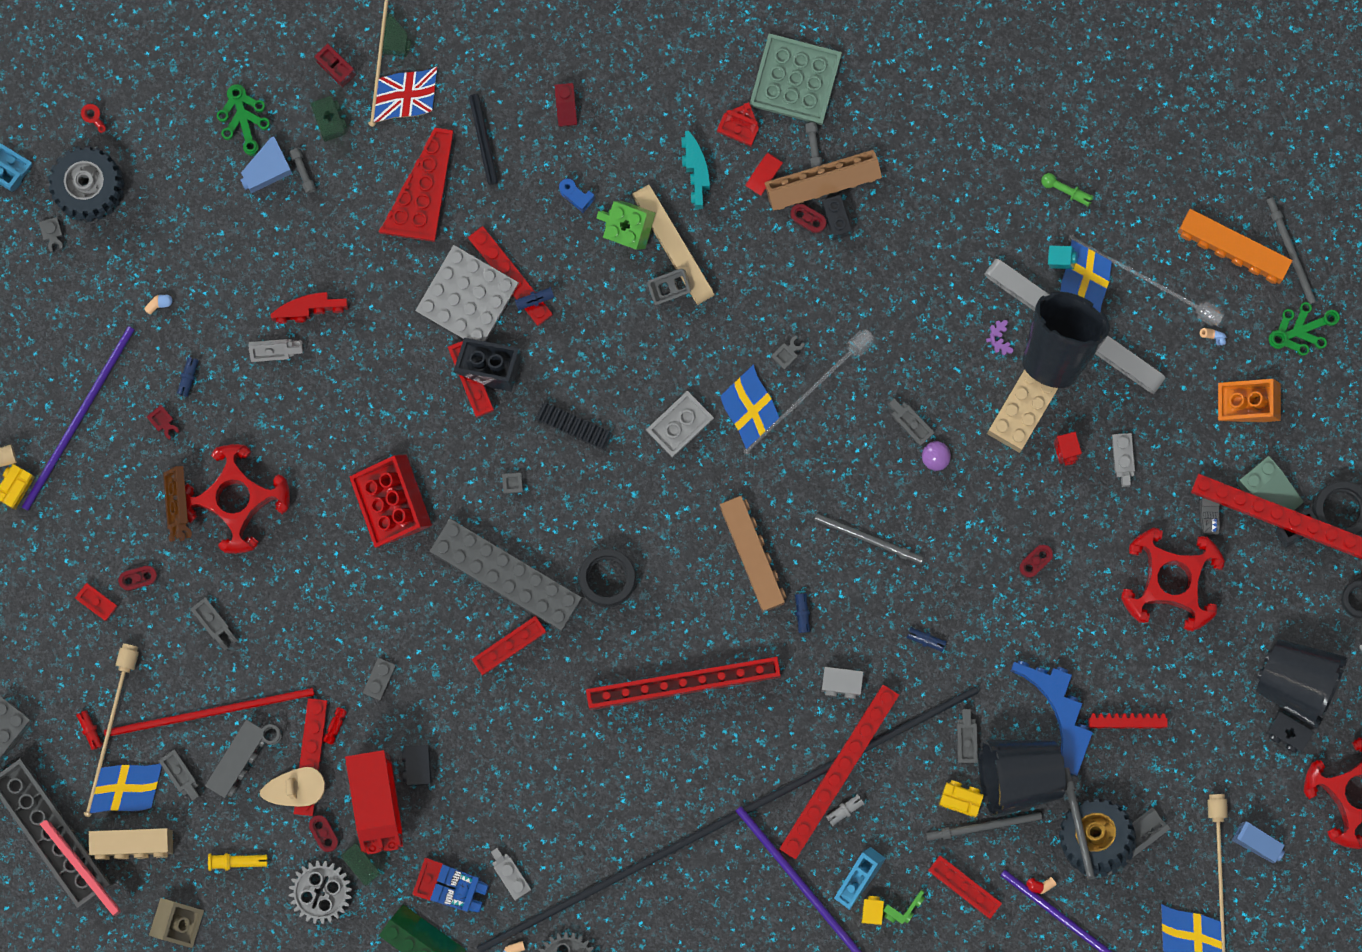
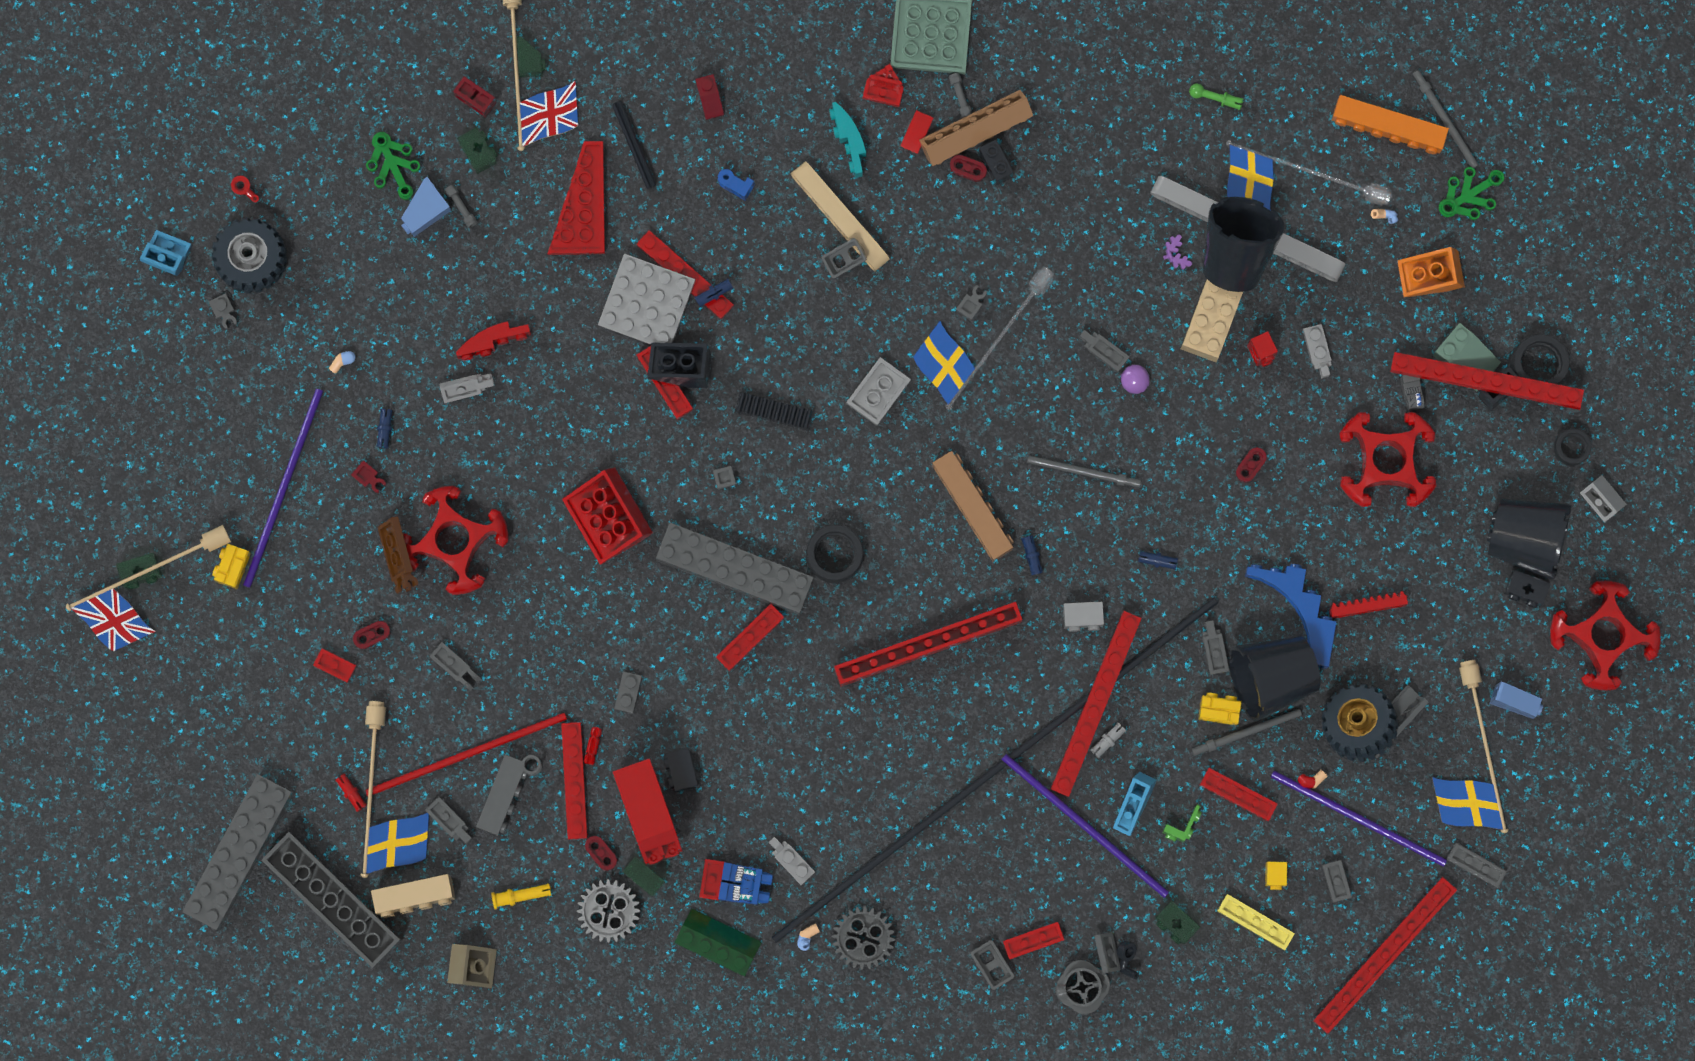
camera: 15 degrees left, 0 degrees up
(80, 867) = (369, 927): coral tile -> none
(295, 788) = (565, 813): tan shield -> none
(618, 223) = (782, 204): bright green hinge -> none
(872, 910) = (1152, 833): yellow brick -> none
(1062, 257) = (1223, 163): teal brick -> none
(1070, 790) = (1325, 681): dark grey bar -> none

